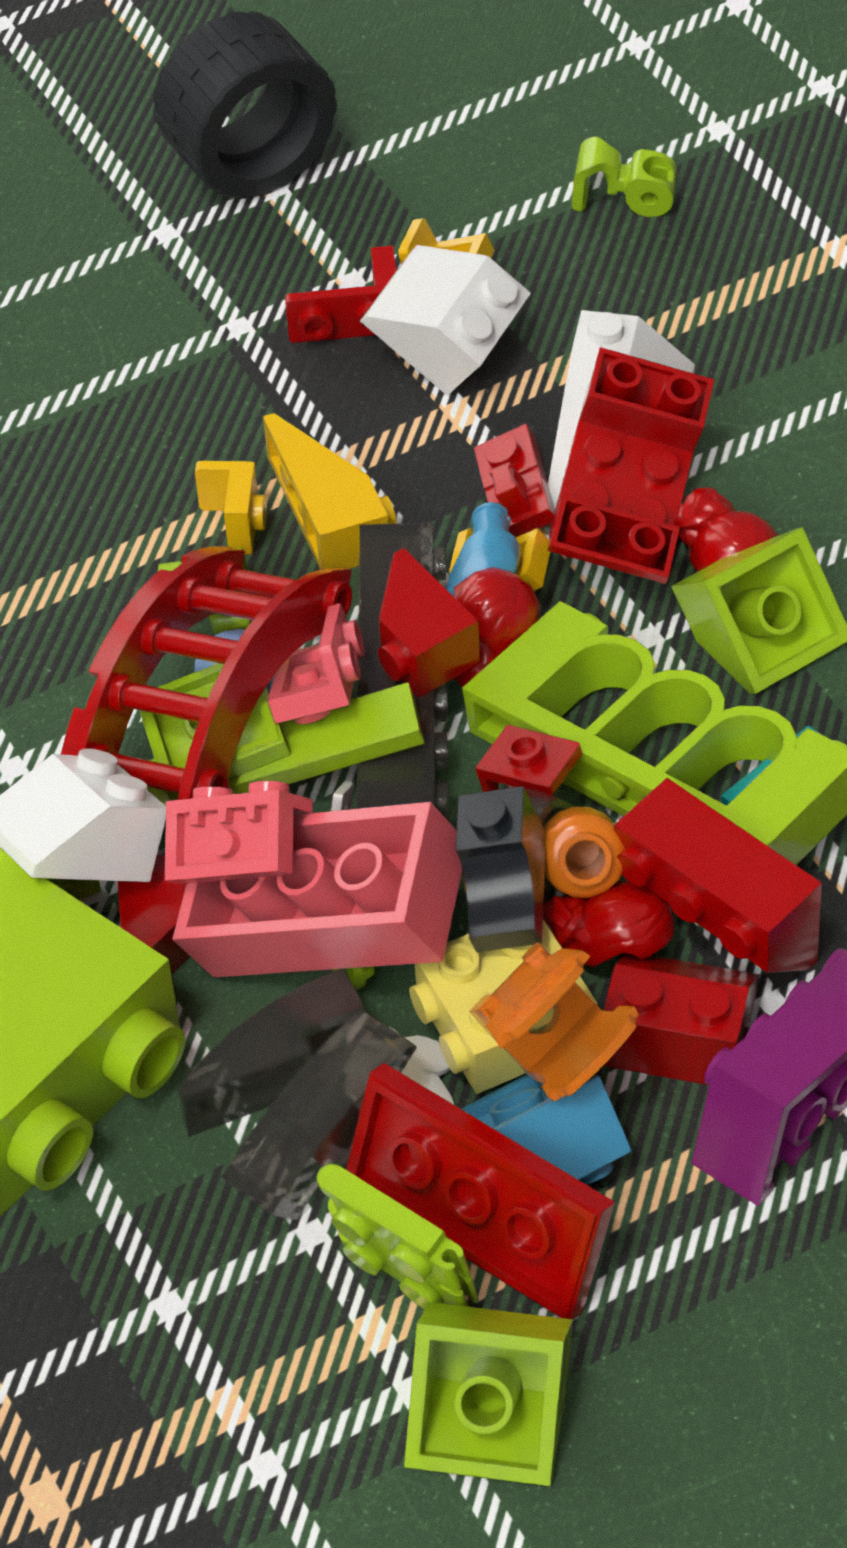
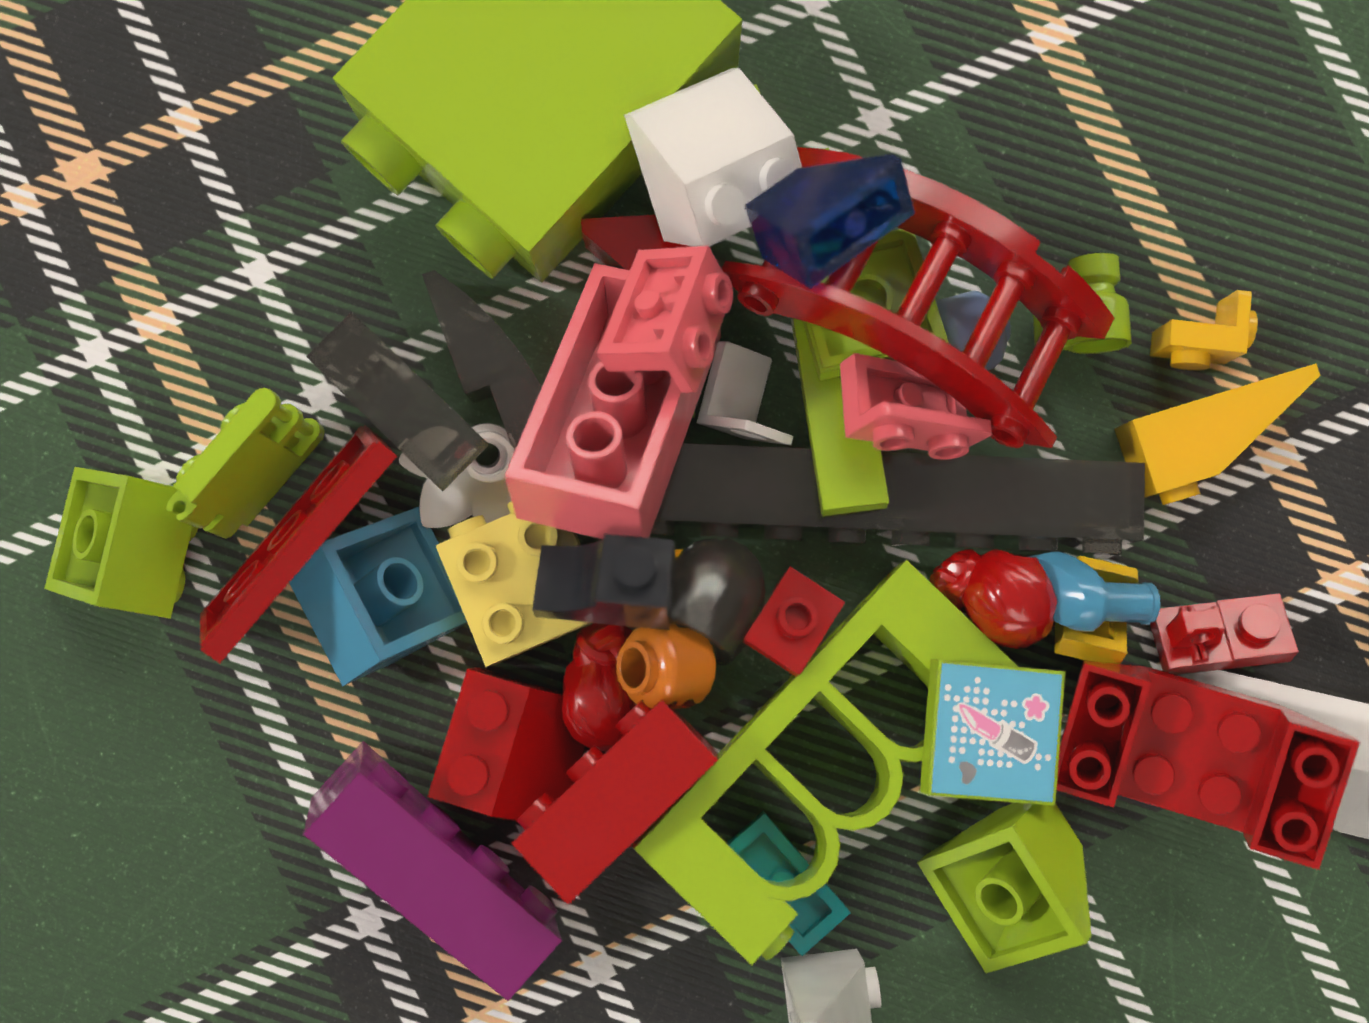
camera: 90 degrees right, 35 degrees up
(140, 709) = (829, 214): none -> clear blue slope
(424, 629) = (968, 517): red slope -> none
(576, 1038) = (420, 621): orange piece -> none
(619, 608) = (992, 732): none -> medium azure tile
(715, 529) = (1126, 854): red hair -> none

